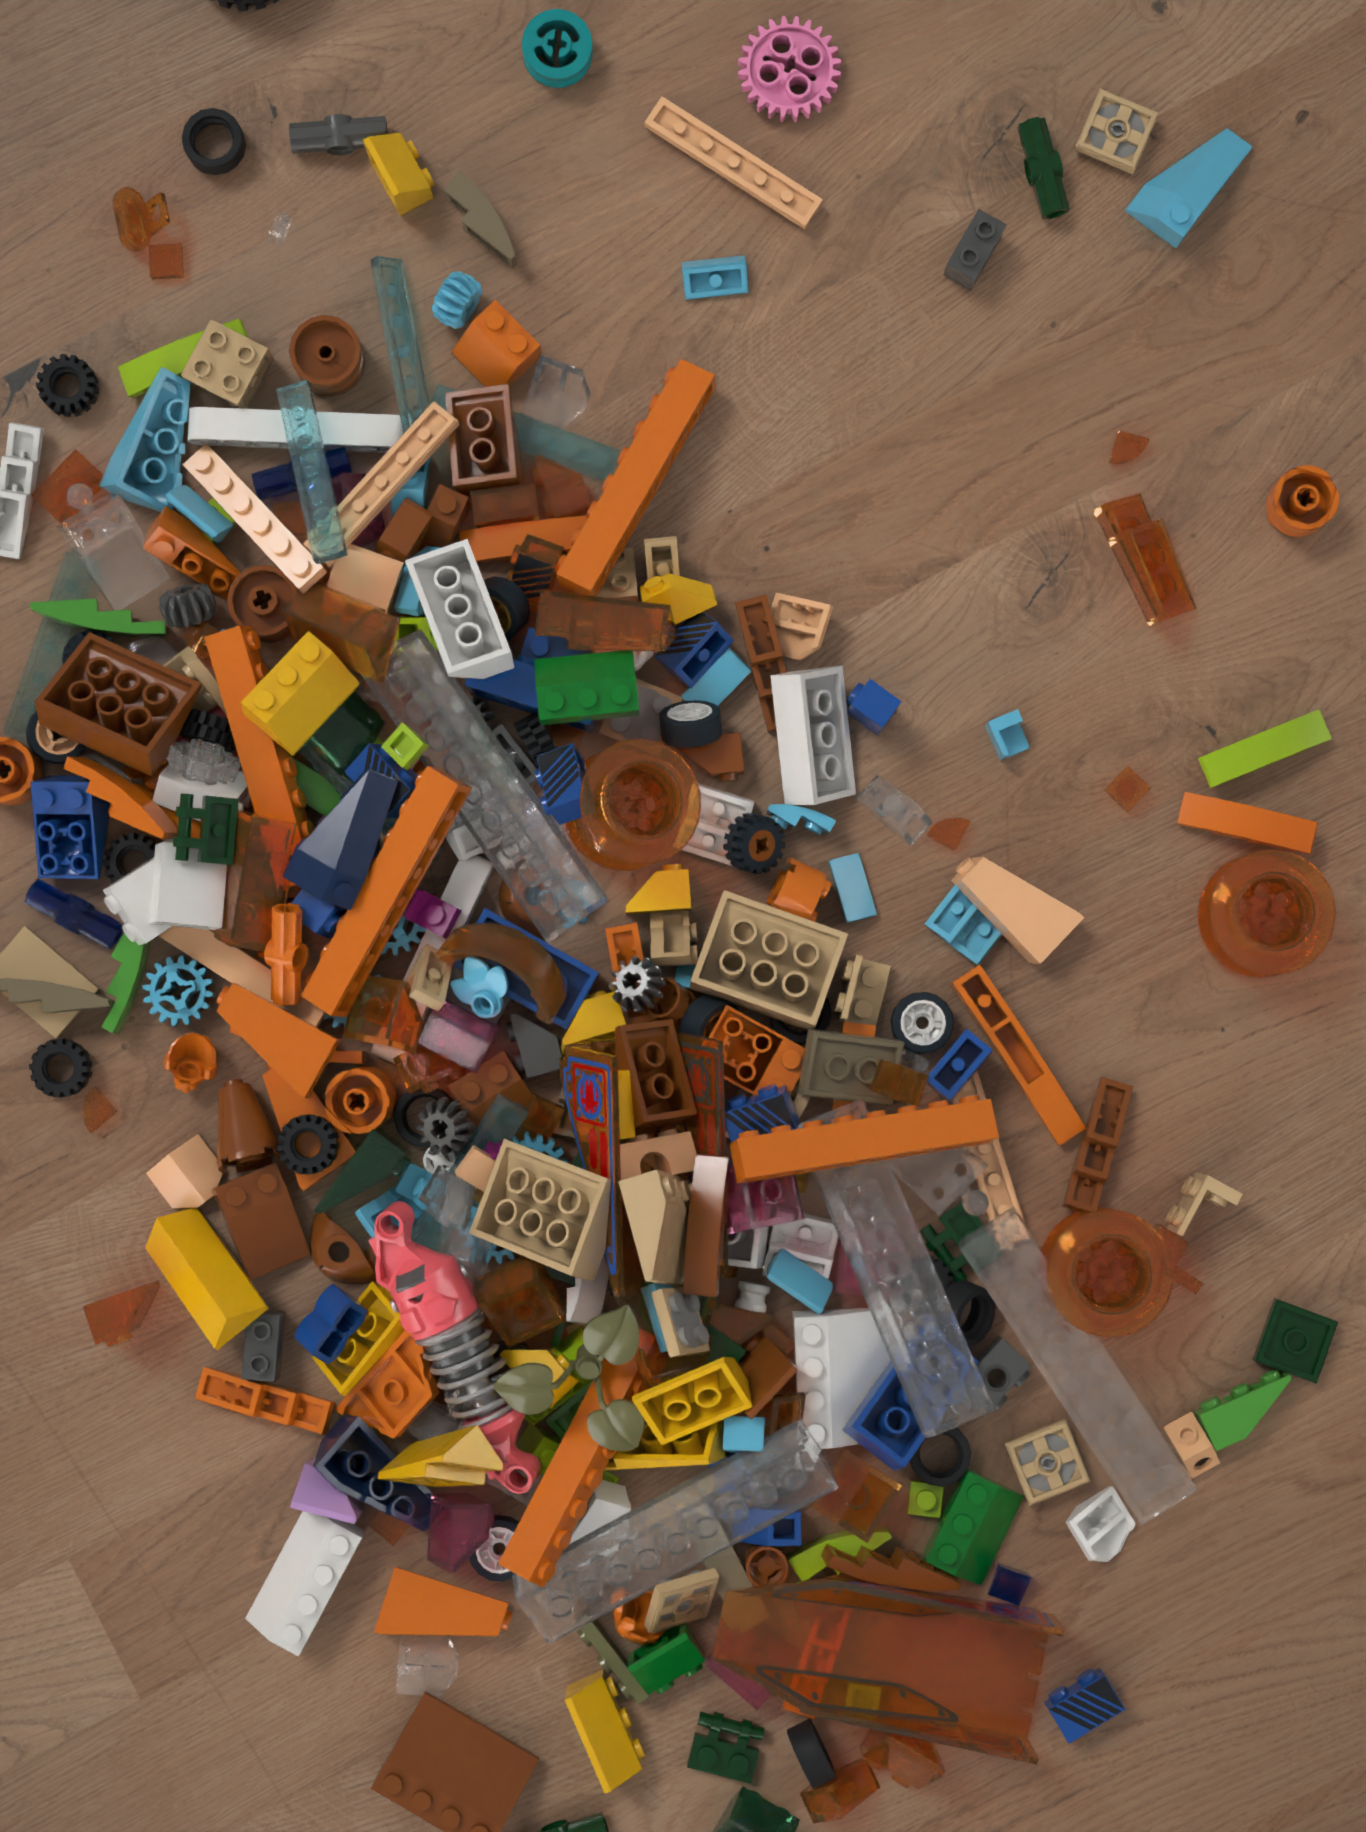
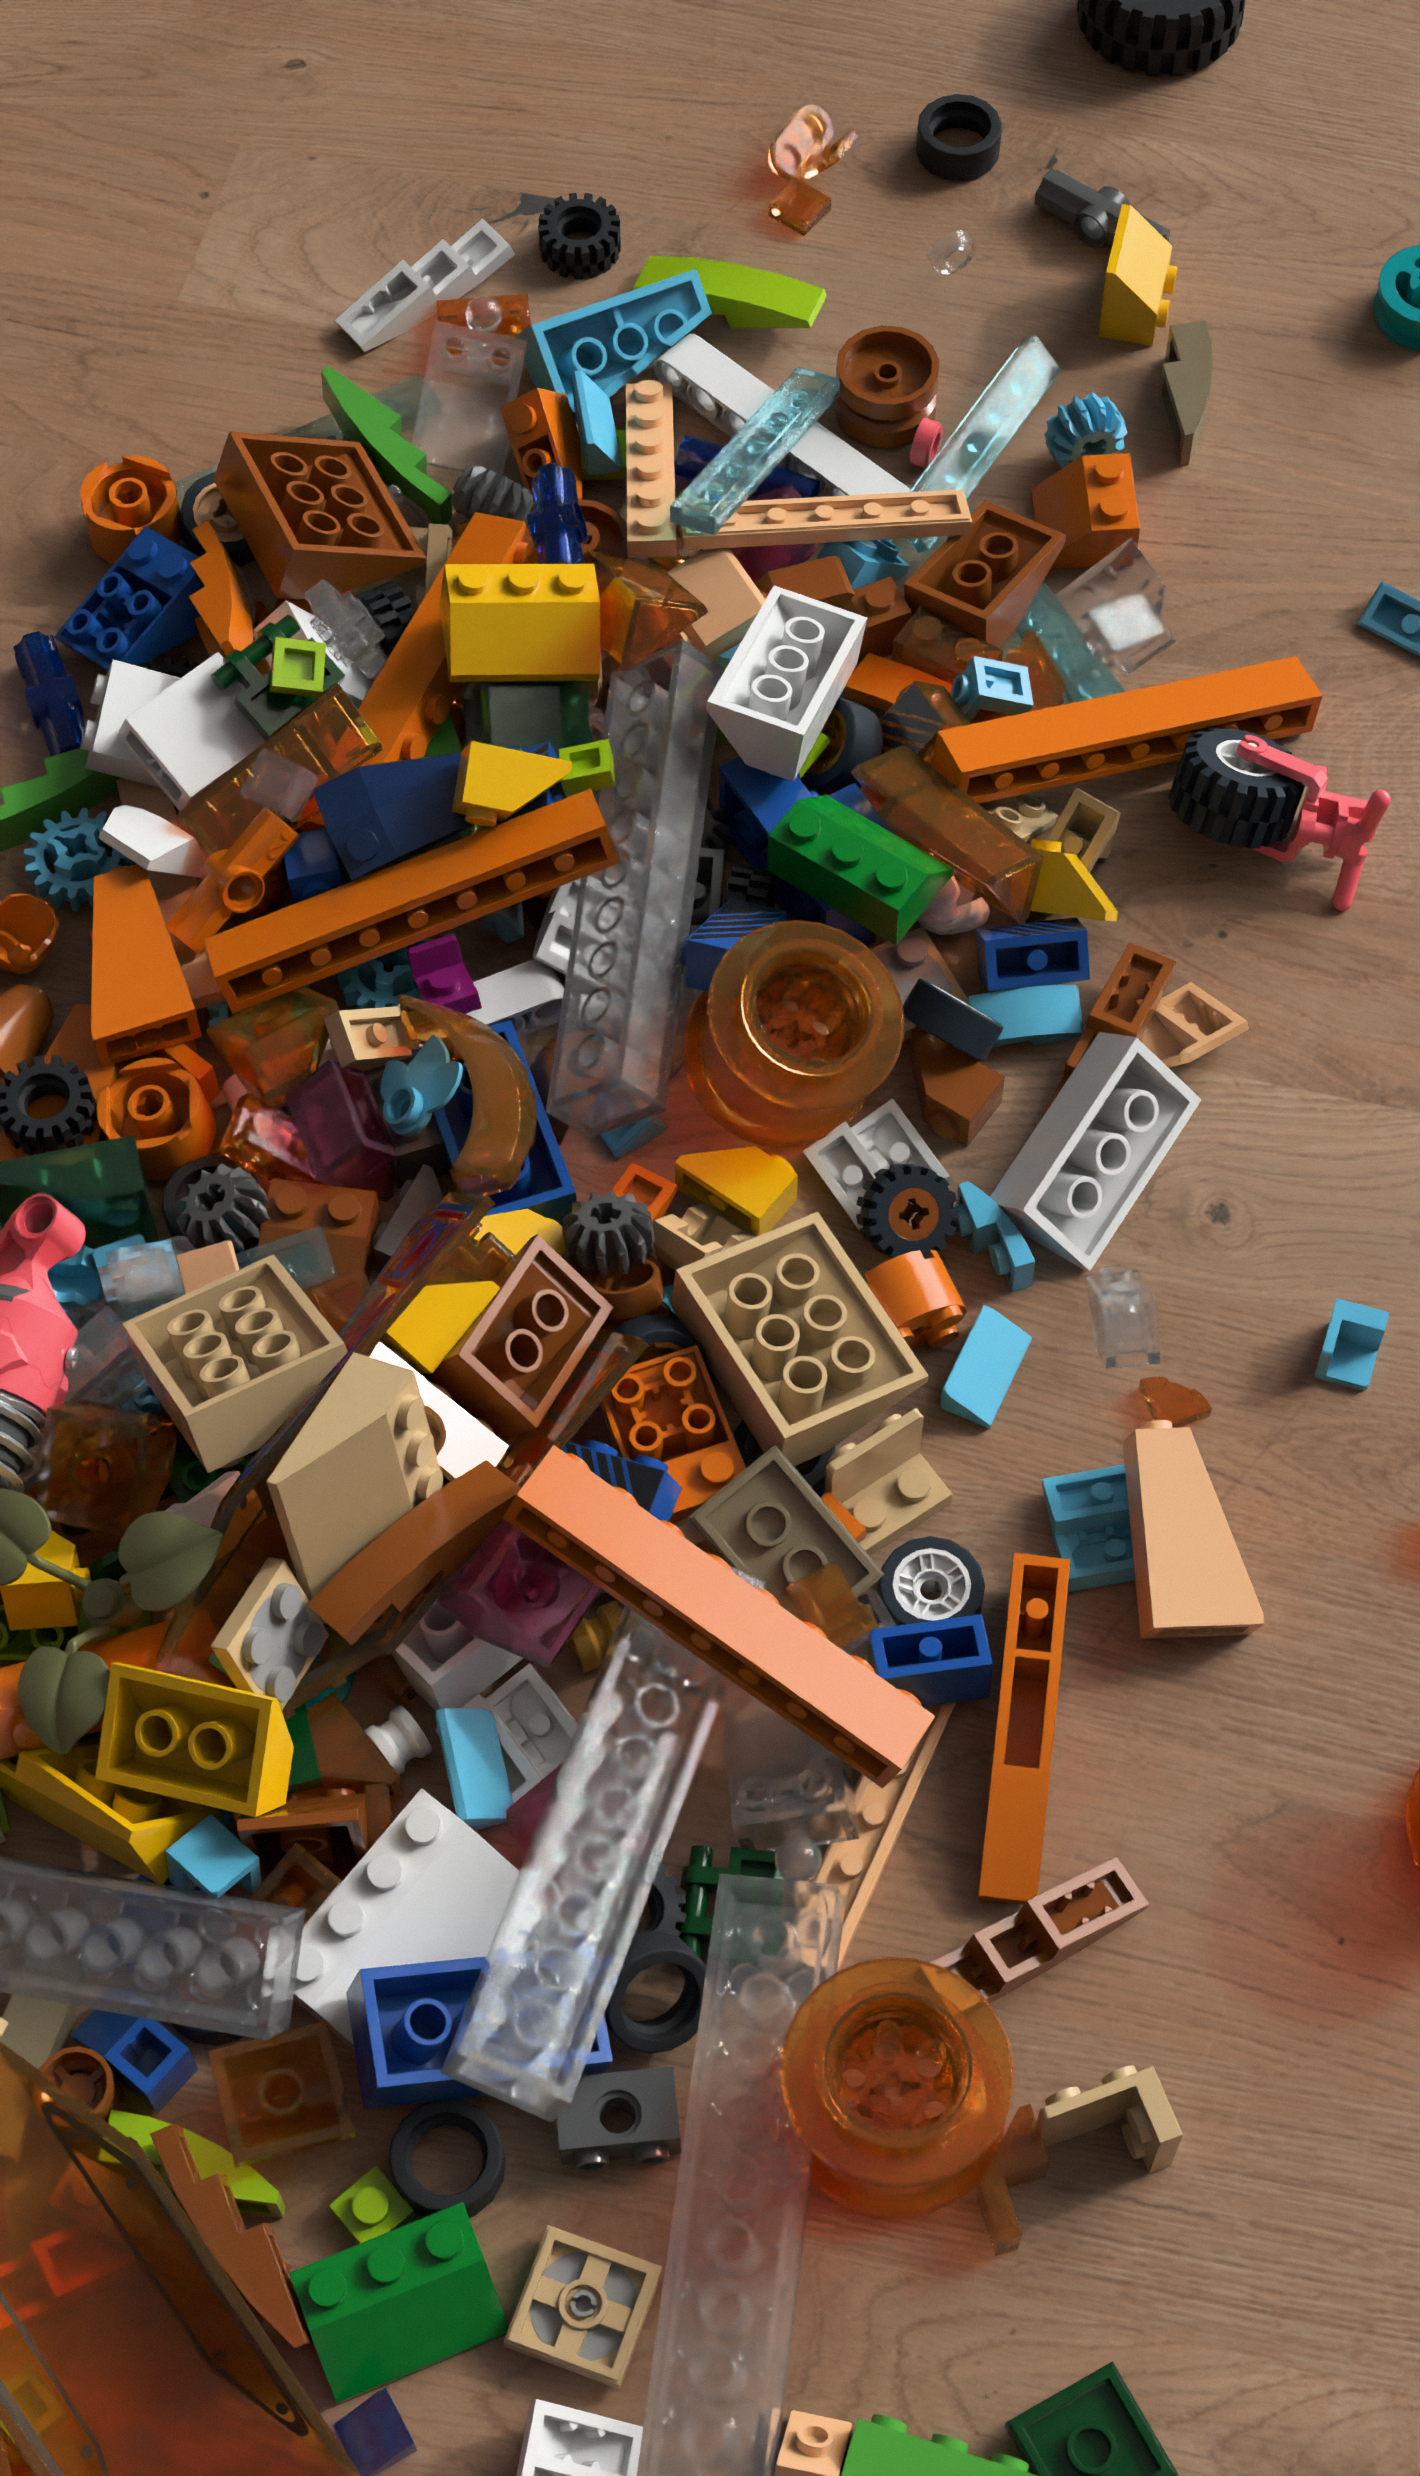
camera: 45 degrees right, 25 degrees down
(218, 822) = (297, 667): none -> lime plate
(221, 967) = (152, 842): none -> white slope
(228, 364) = (771, 324): tan bracket -> none
(254, 610) = (557, 519): none -> clear blue piece
(266, 890) = (279, 785): none -> clear slope
(376, 372) = (926, 443): none -> coral tile
(384, 801) = (501, 781): none -> yellow slope
(552, 515) = (992, 687): none -> medium azure bracket
(586, 417) = (1126, 632): none -> clear slope
(721, 466) = (1247, 794): none -> piece
(872, 705) = (1200, 1171): blue brick -> none

